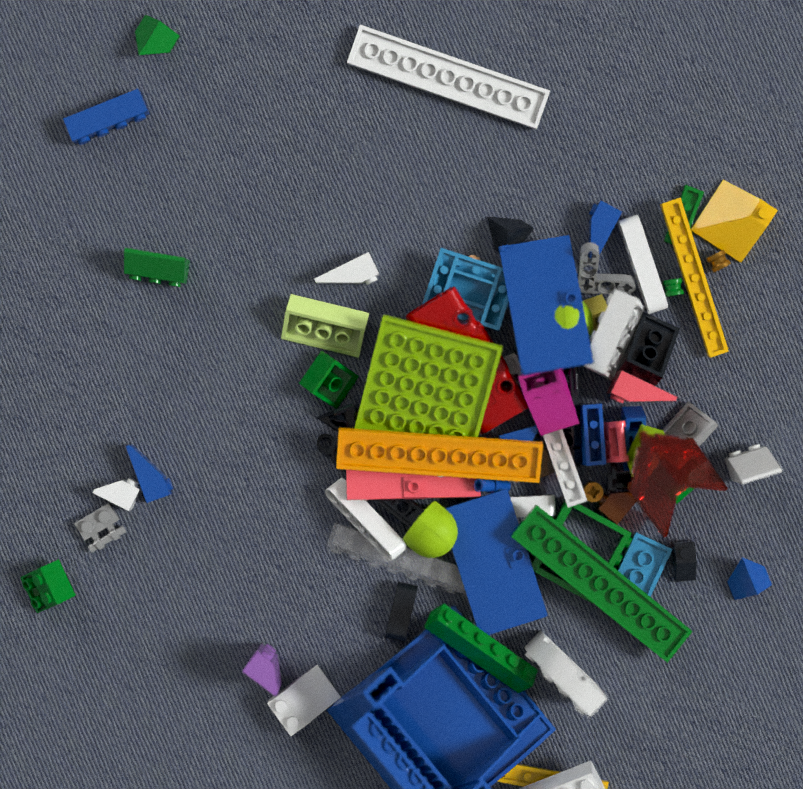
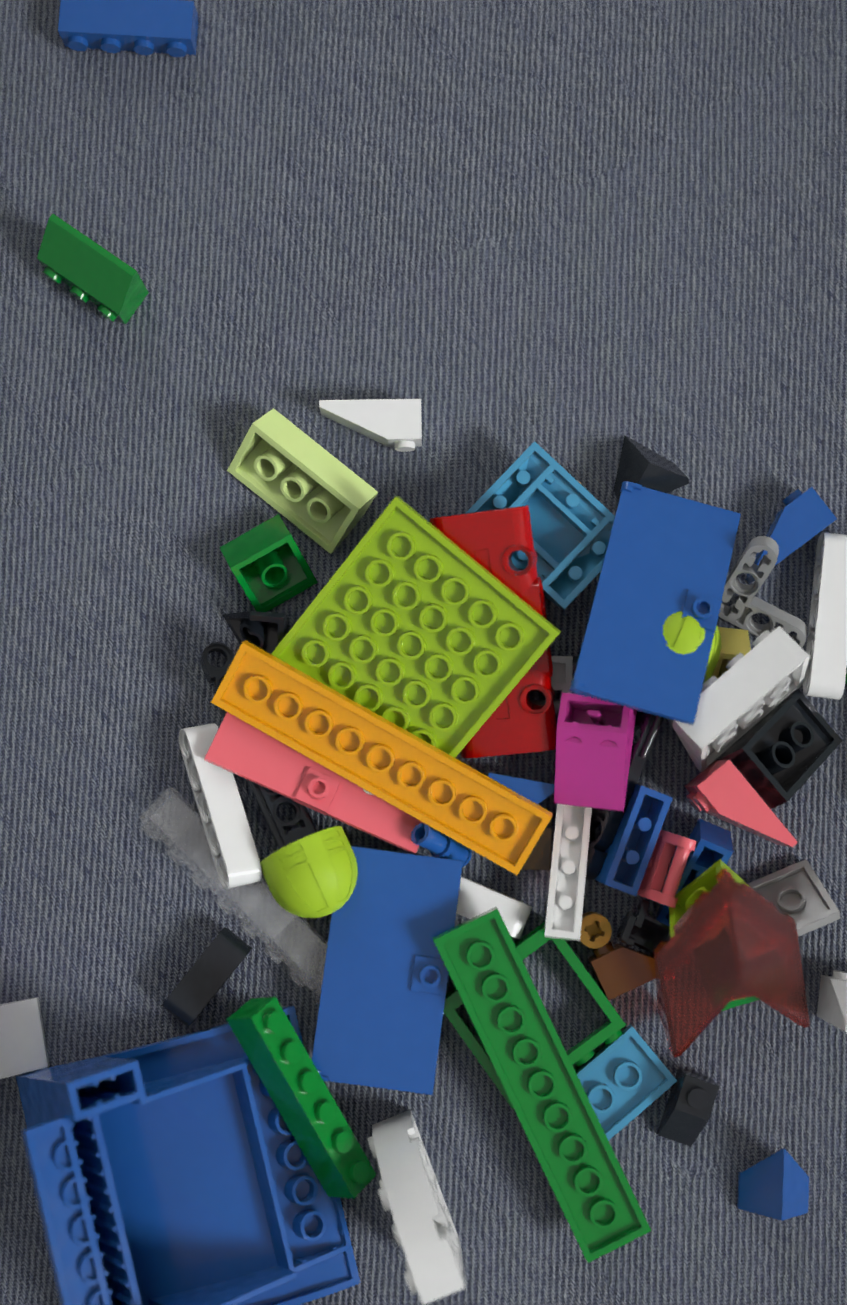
camera: 15 degrees right, 5 degrees down
(448, 77) = (663, 202): white plate -> none

